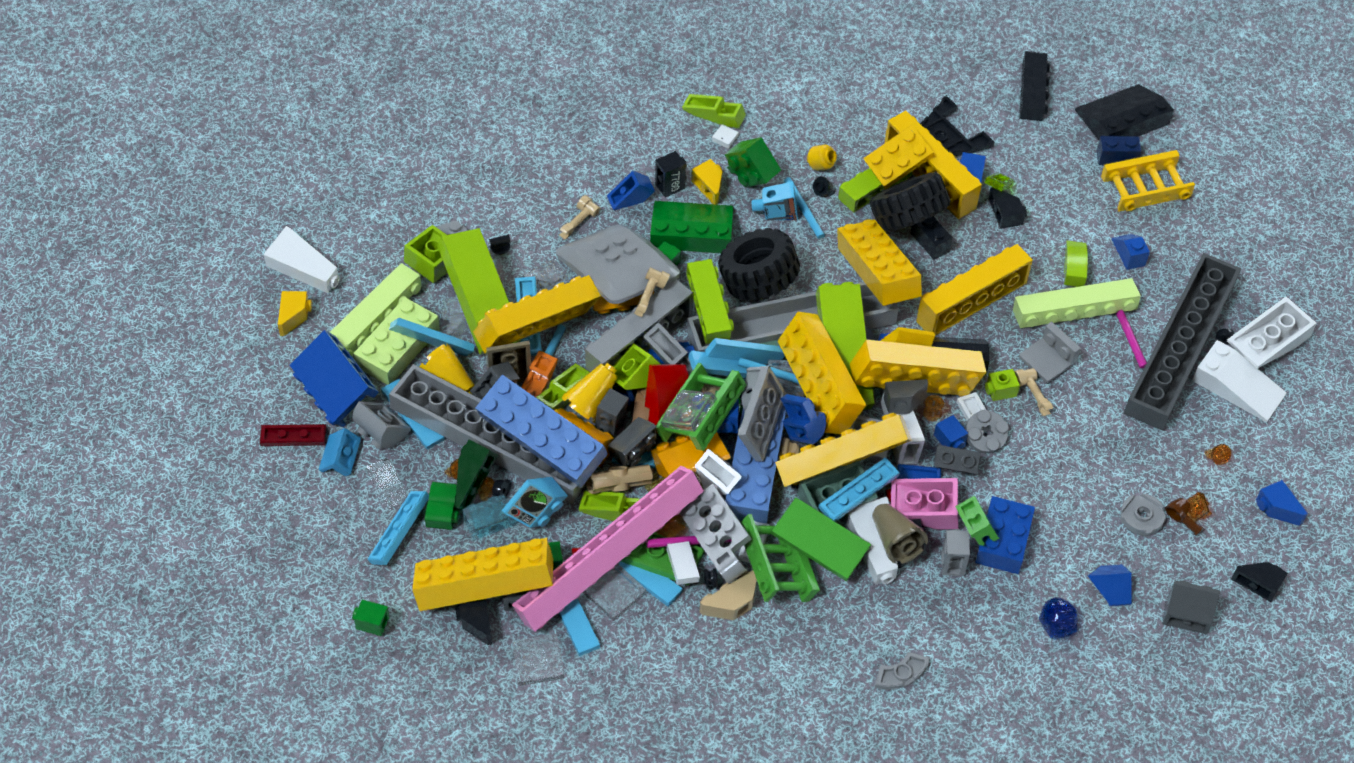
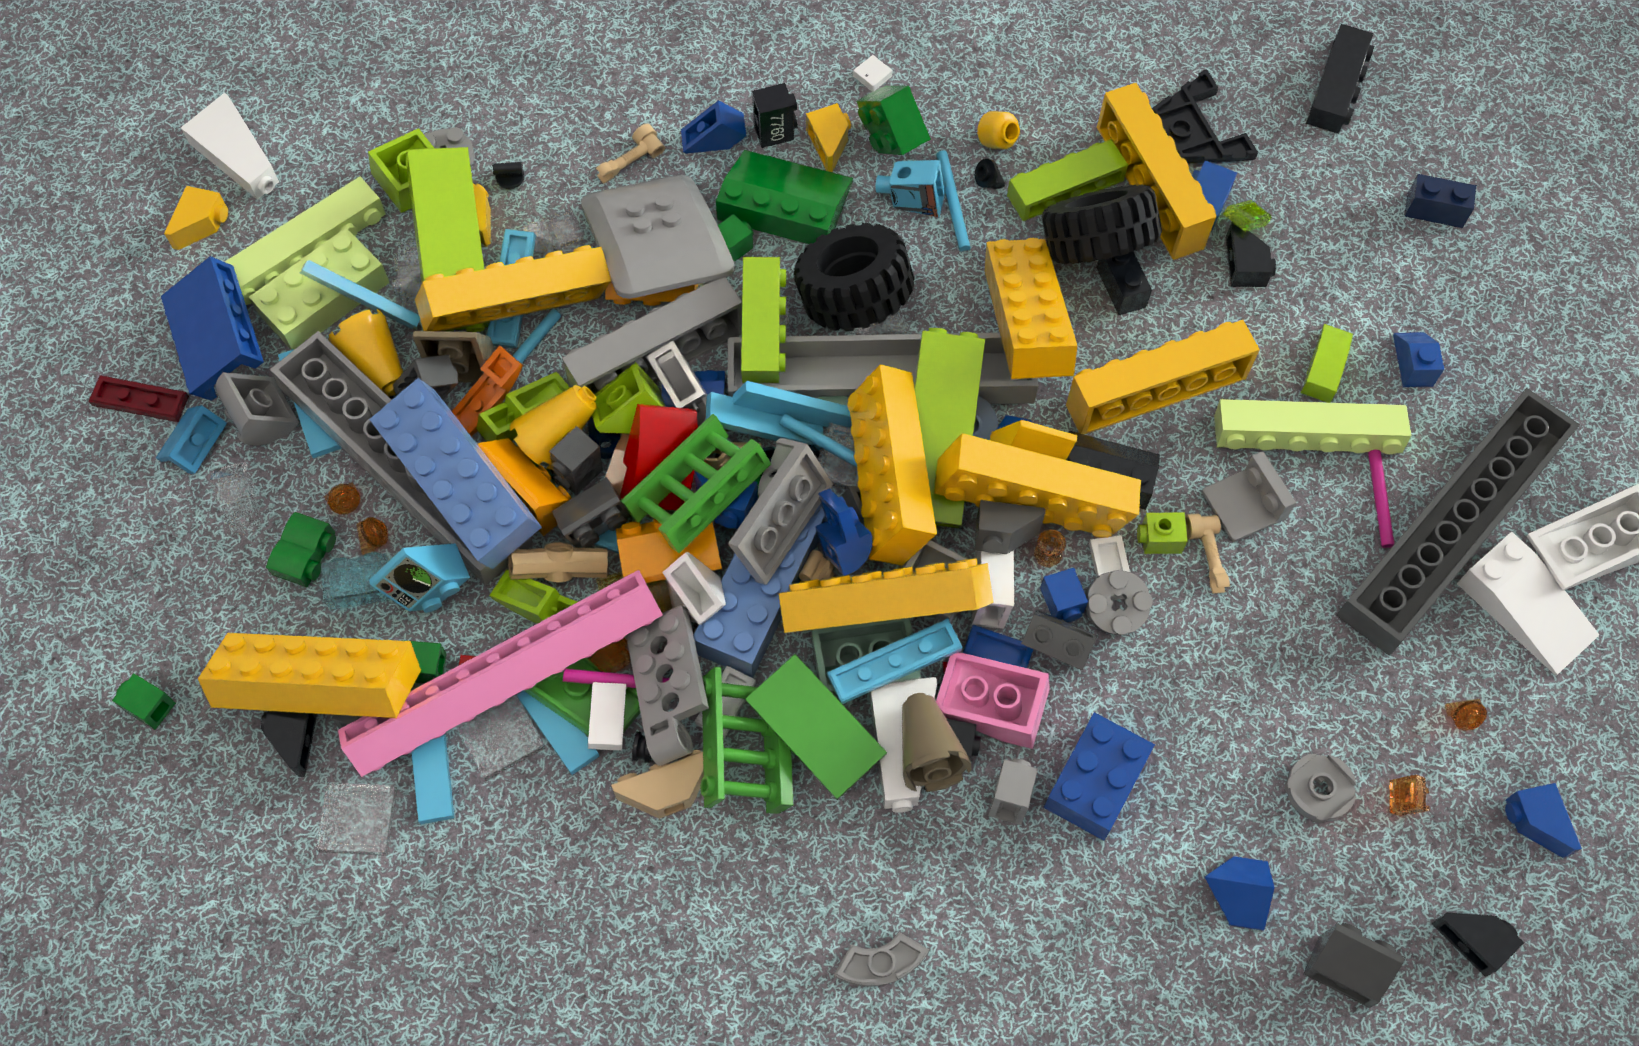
camera: 15 degrees right, 10 degrees up
(398, 528) = (230, 570): medium azure tile -> none
(473, 469) = (348, 511): dark green slope -> none
(500, 487) = (391, 540): black piece -> none
(655, 279) = (692, 272): tan brick -> none
(688, 410) = (671, 487): clear plate -> none
(715, 110) = (869, 32): lime slope -> none
(899, 157) = (1105, 151): yellow plate -> none
(976, 520) = (1056, 752): bright green hinge -> none
(1059, 618) = (1143, 933): clear blue hair -> none
(1126, 113) = (1468, 145): black slope -> none
(1147, 165) = (1480, 232): yellow fence -> none
(1178, 511) = (1379, 794): reddish brown bar -> none
(1224, 334) = (1525, 523): black piece -> none

